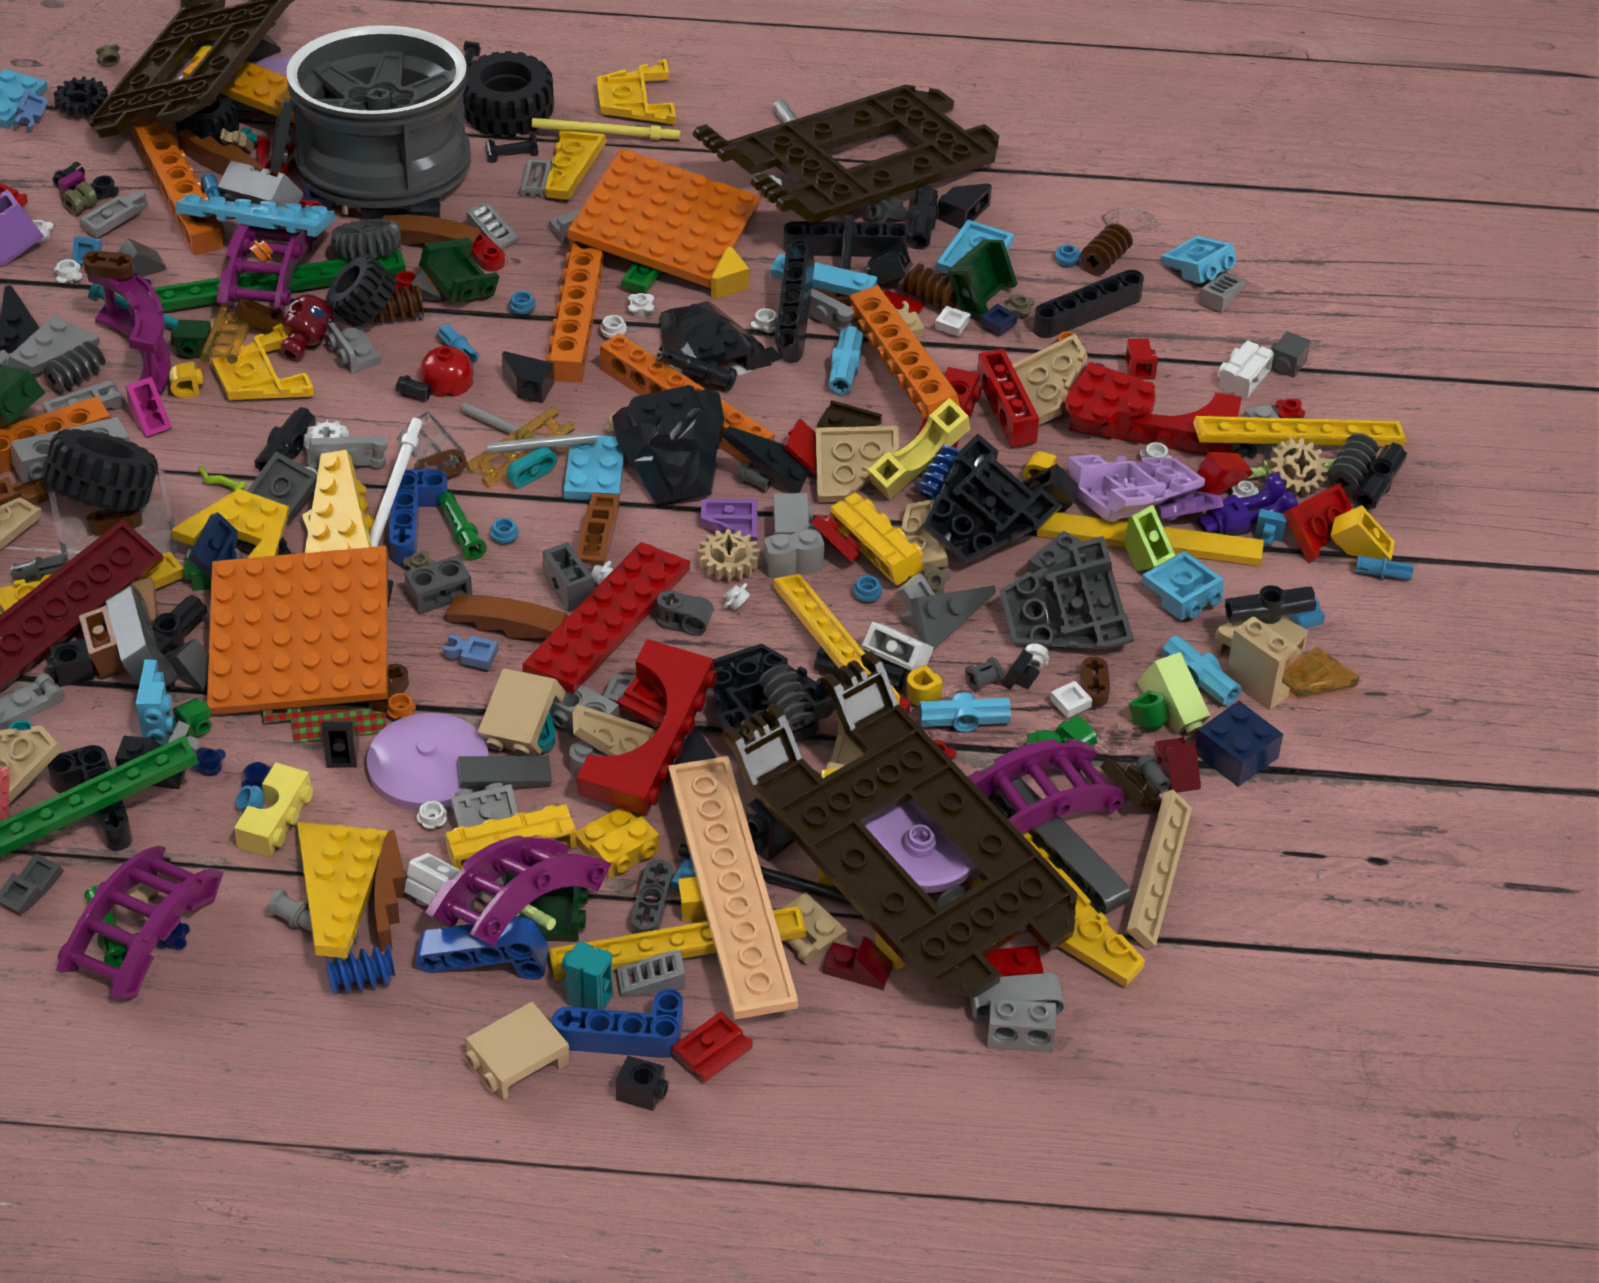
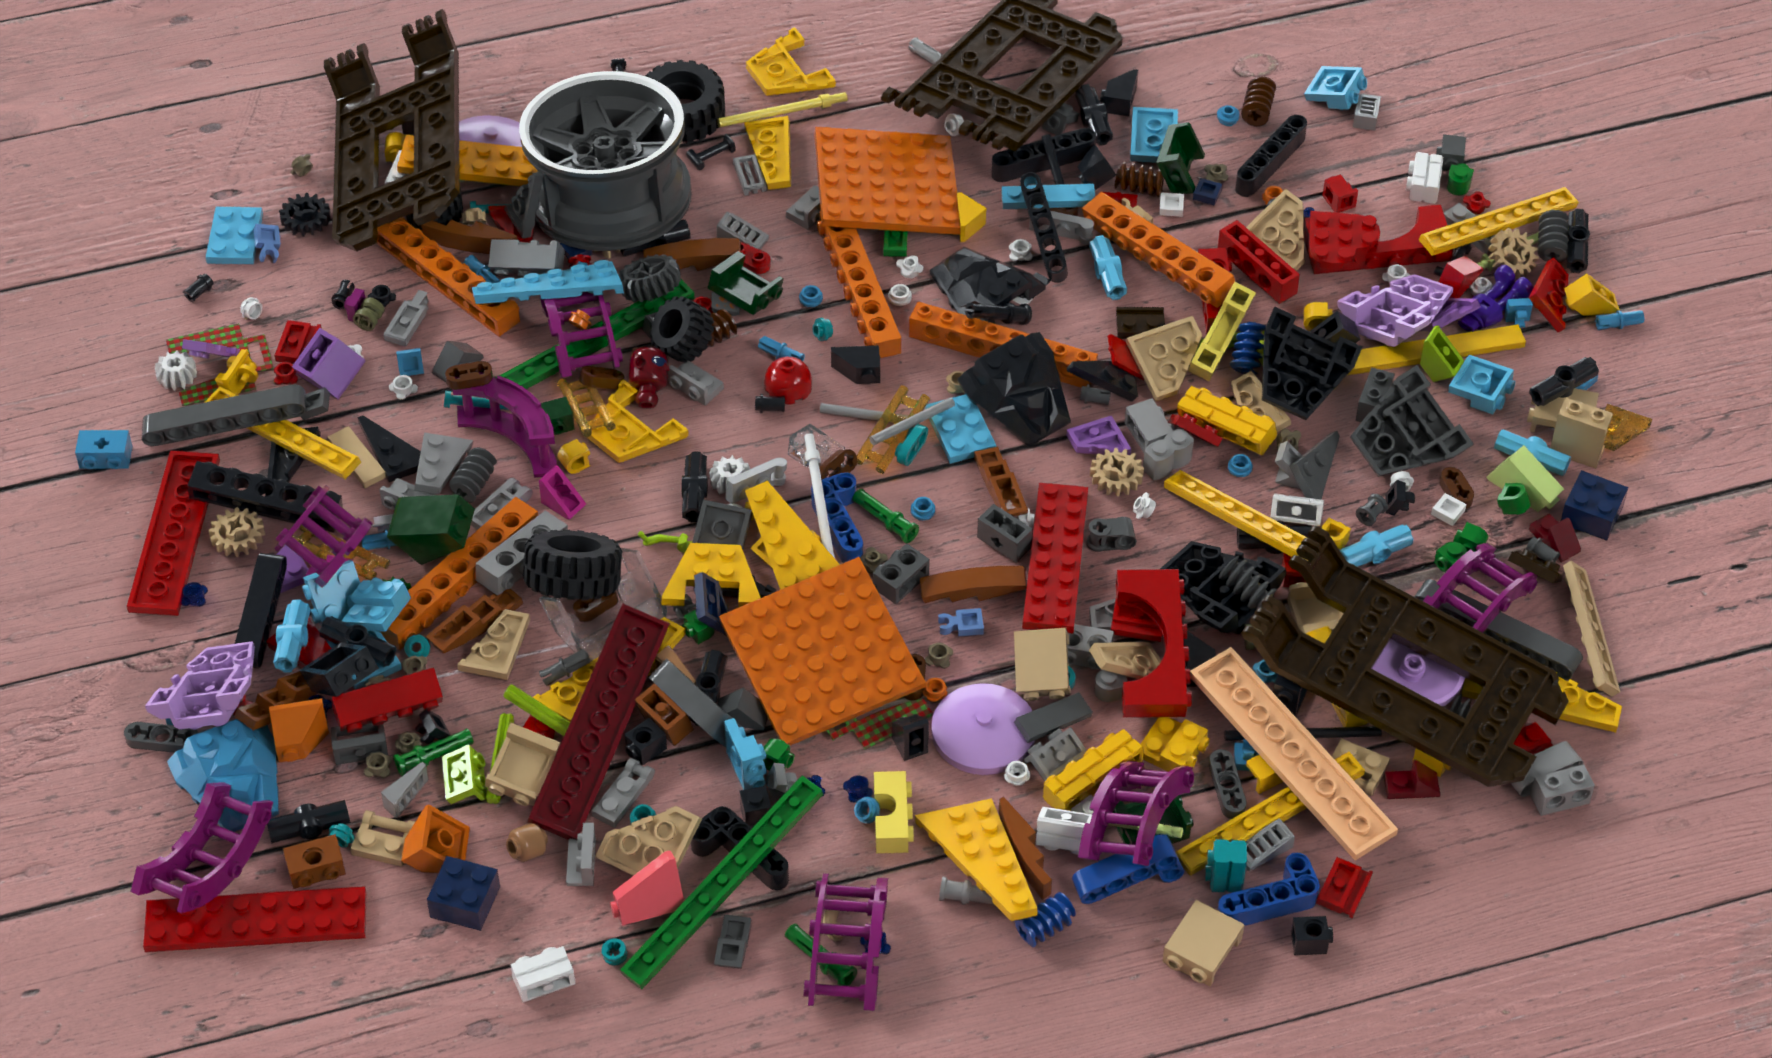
camera: 20 degrees left, 5 degrees up
(427, 675) = (942, 650): none -> dark tan plate
(512, 335) = (822, 329): none -> teal plate
(1284, 382) = (1459, 179): none -> green plate

